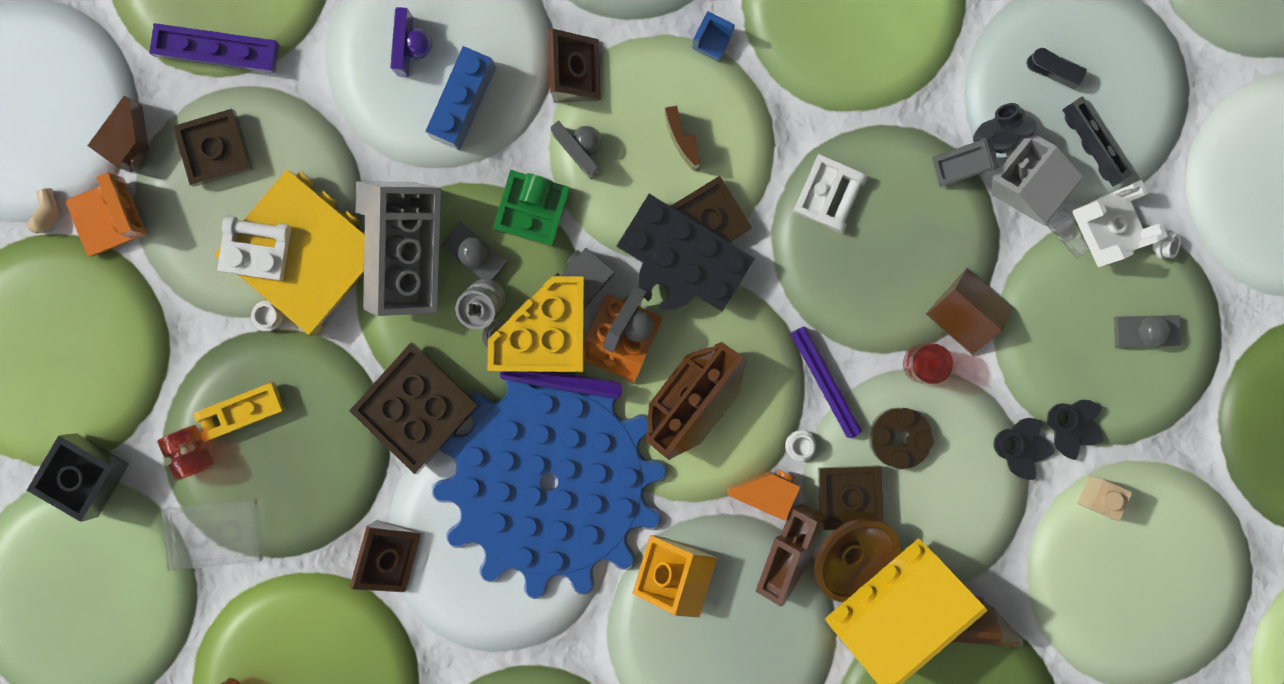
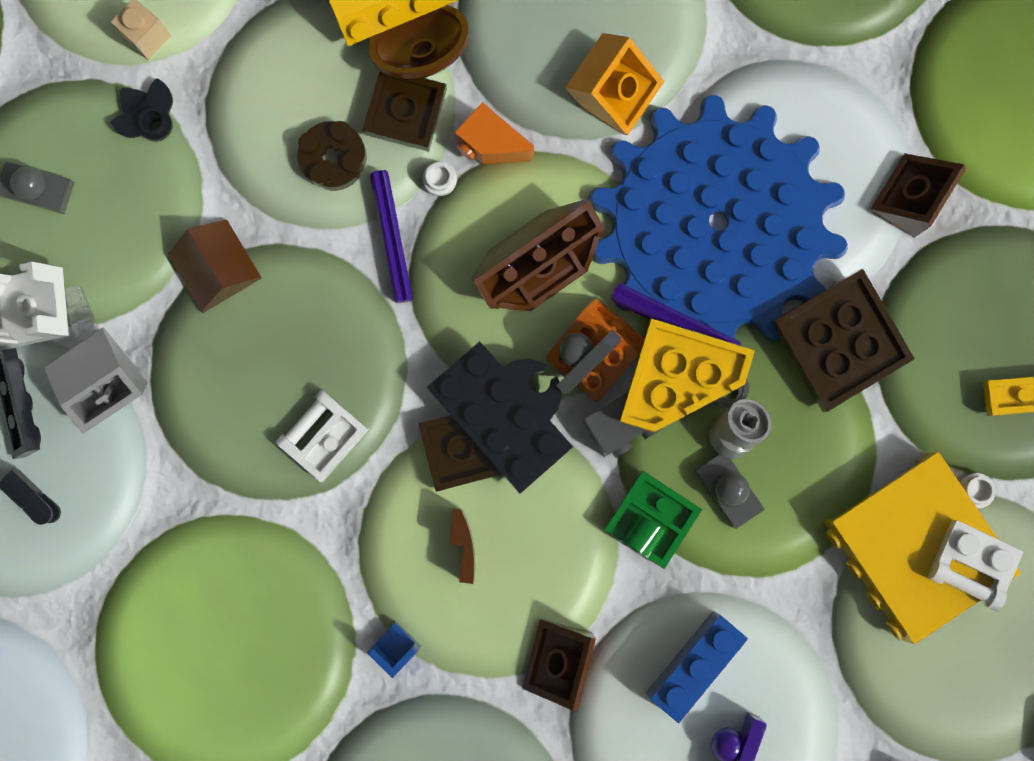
camera: 160 degrees left, 5 degrees down
(212, 147) = (990, 697): dark brown plate -> none
(400, 246) = (812, 518): light grey hinge -> none
(579, 146) = (573, 574): dark grey tile -> none
(791, 553) = (485, 69): reddish brown slope -> none
(928, 363) = (277, 220): clear red wheel -> none
(965, 162) = (164, 422): dark grey tile -> none
(1006, 127) = (107, 447): black plate -> none
(1026, 447) = (204, 105): black plate -> none

